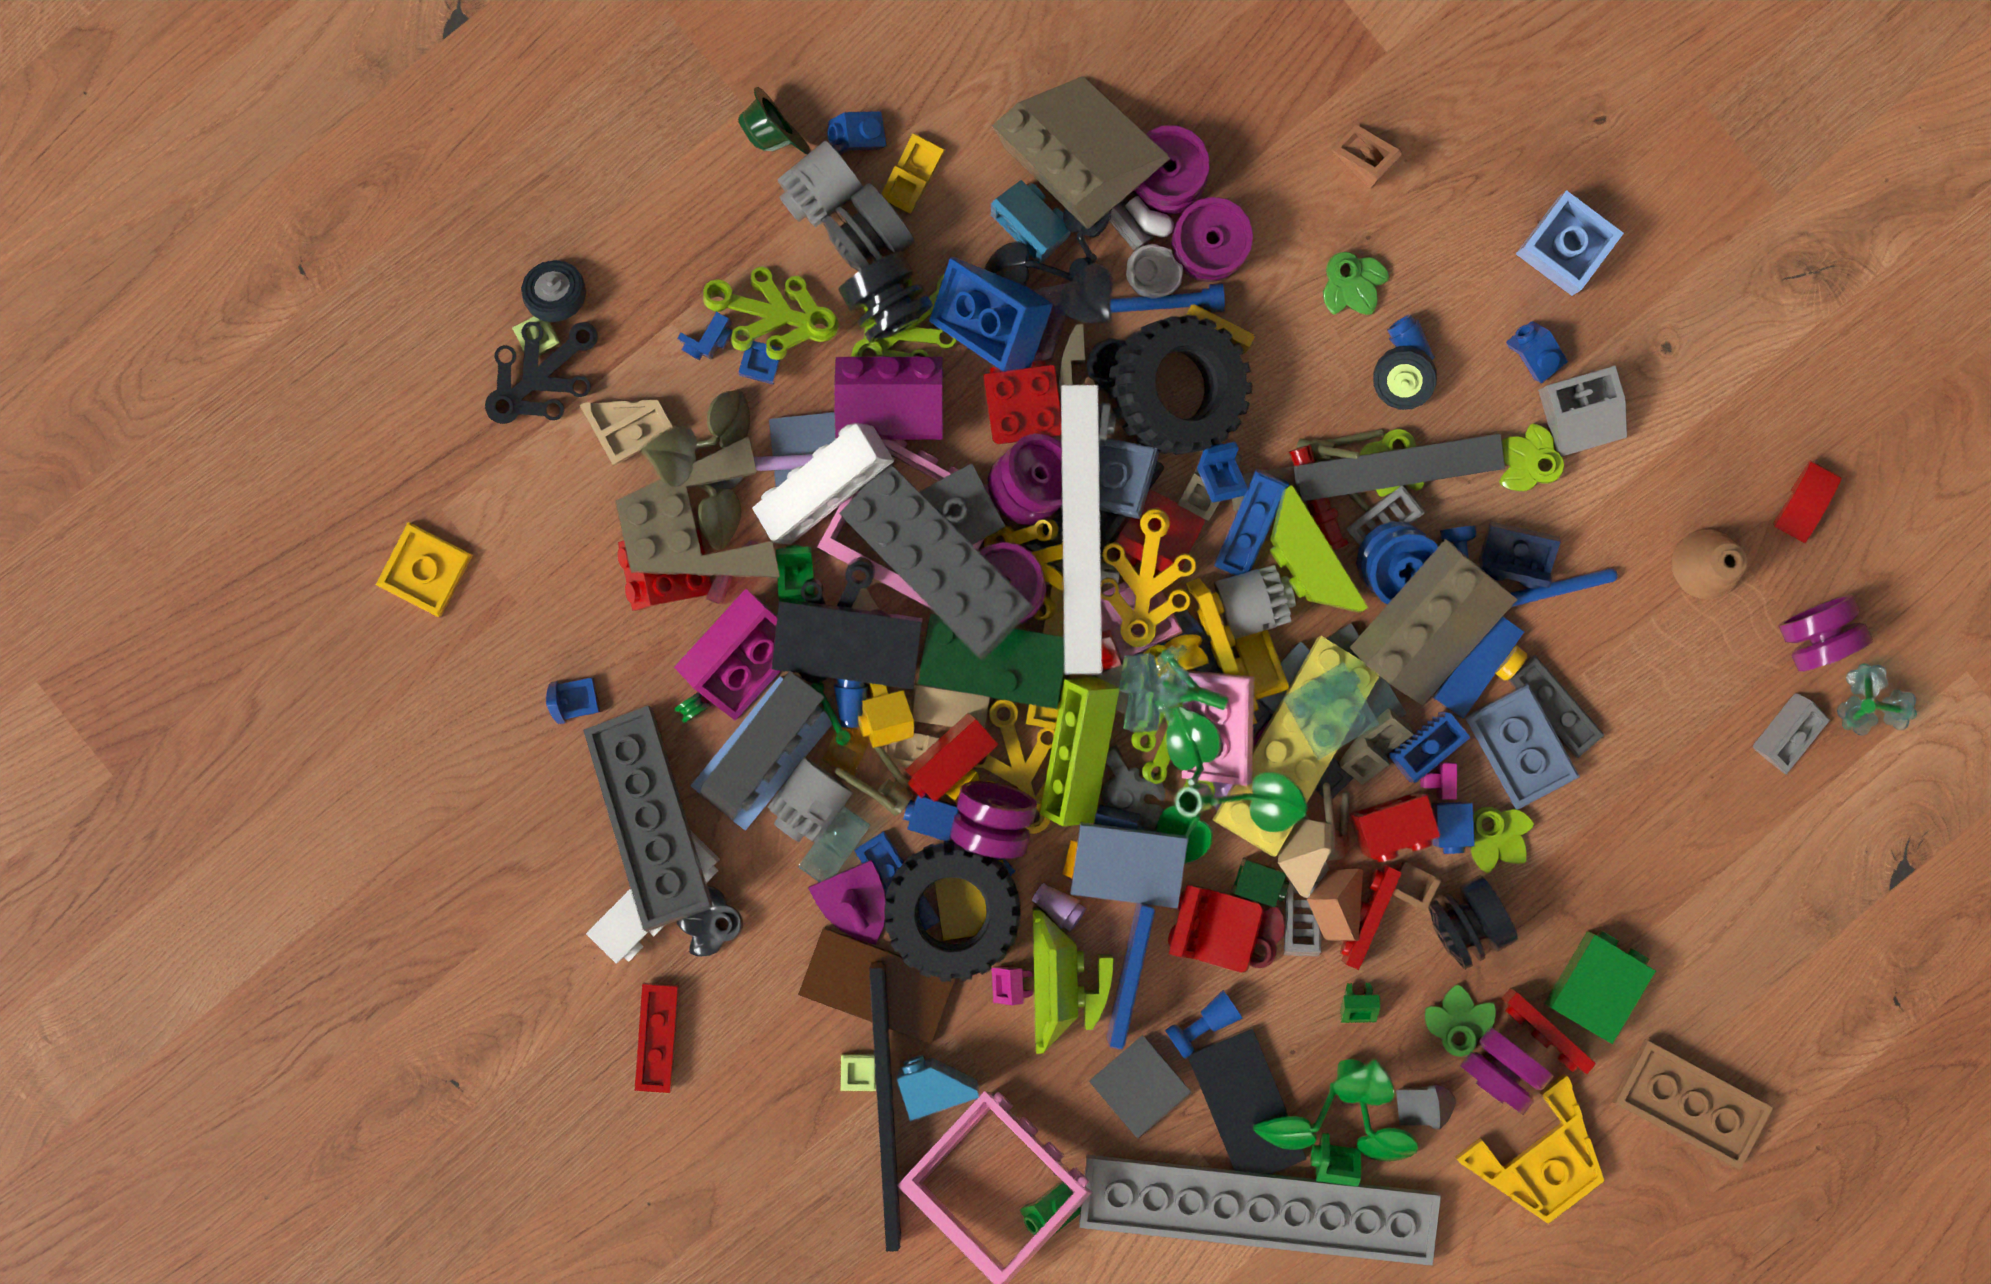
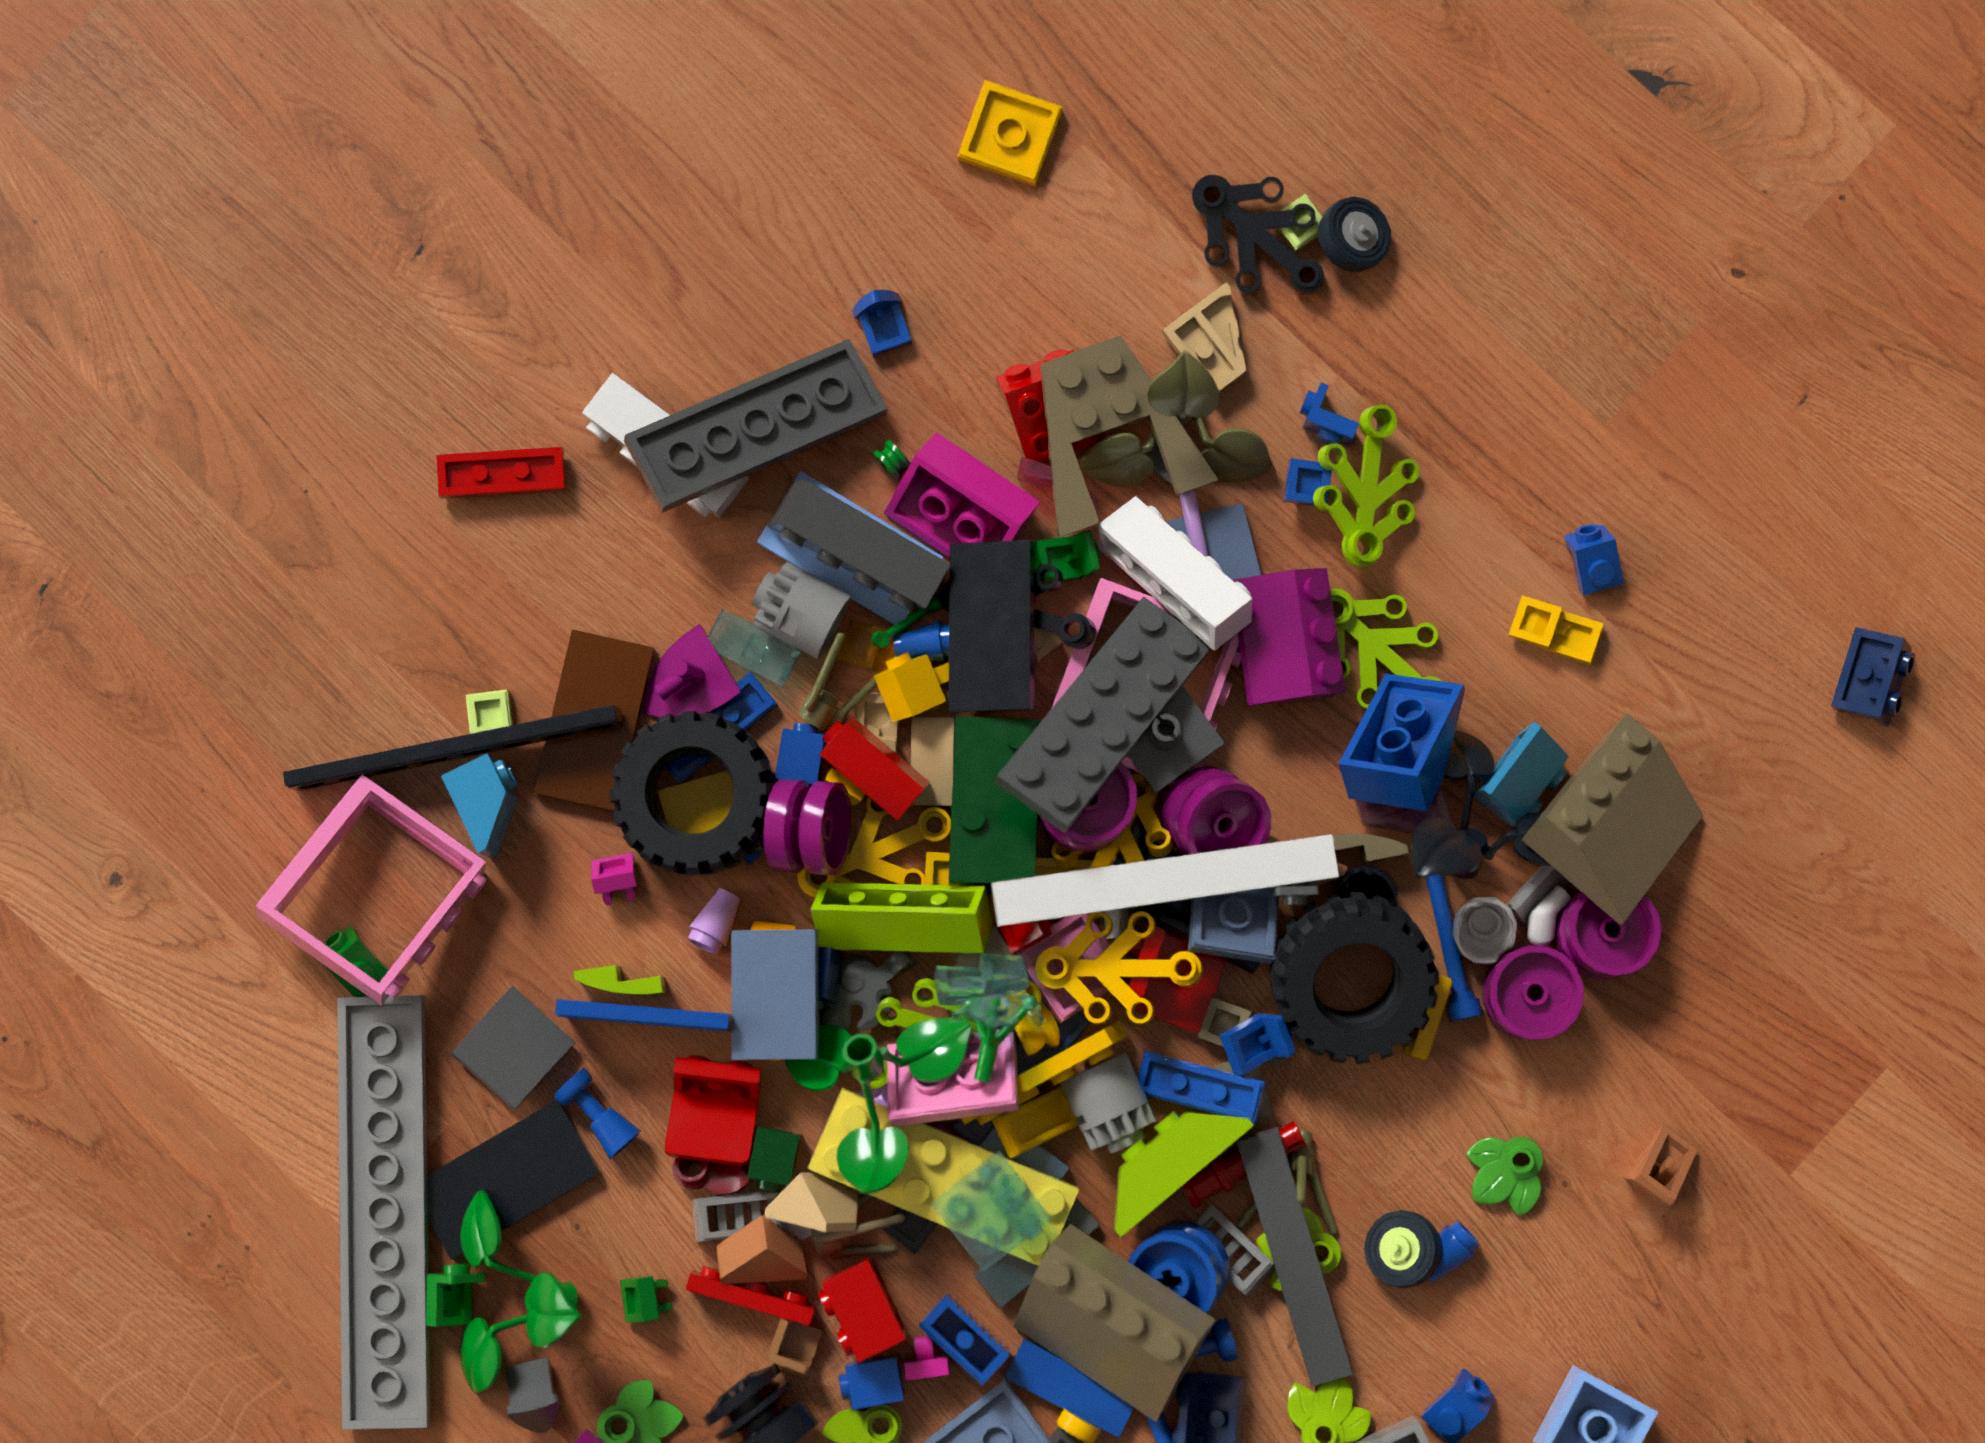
camera: 85 degrees right, 5 degrees down
(706, 927) = (641, 511): black plate -> none
(767, 126) = (1585, 454): dark green piece -> none
(818, 185) = (1524, 521): light grey gear -> none
(868, 230) = (1479, 585): dark grey wheel -> none
(883, 293) = (1412, 609): black wheel -> none
(1023, 402) = (1305, 794): red bracket -> none
(1055, 980) = (627, 928): lime wedge -> none
(1369, 750) = (952, 1269): dark tan slope -> none

